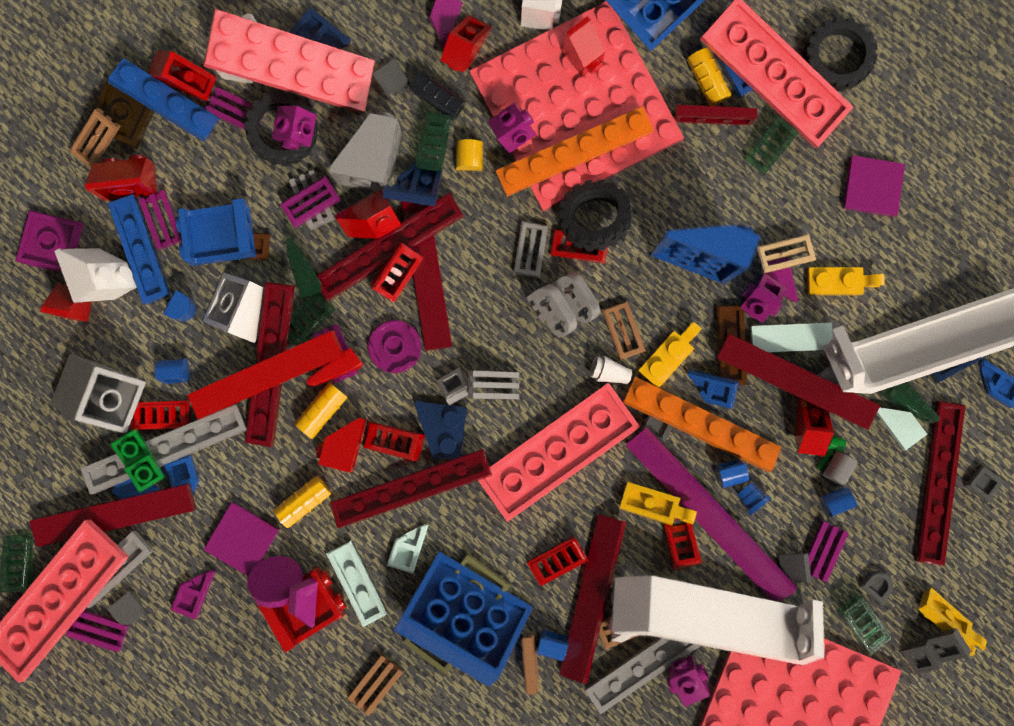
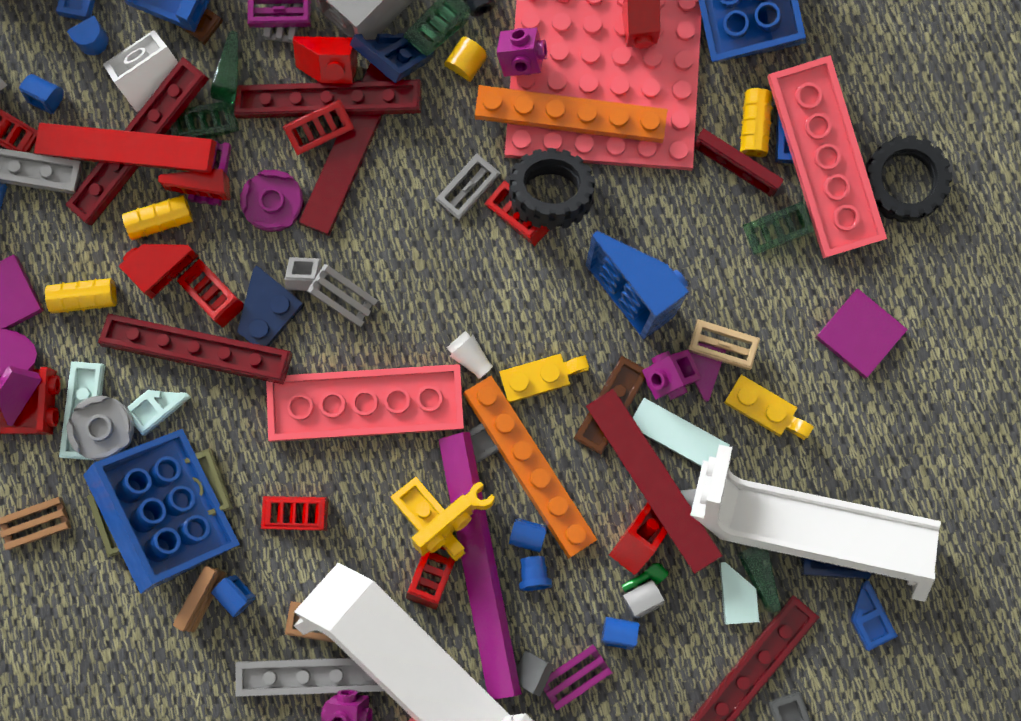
camera: 40 degrees right, 5 degrees down
(380, 588) = (100, 427): none -> light grey tile
(560, 302) = (453, 249): light grey piece -> none
(592, 598) = (304, 574): dark red tile -> none
(634, 329) = (504, 349): medium nougat tile -> none
(678, 495) = (453, 517): none -> yellow plate
(714, 388) = (566, 438): blue tile -> none

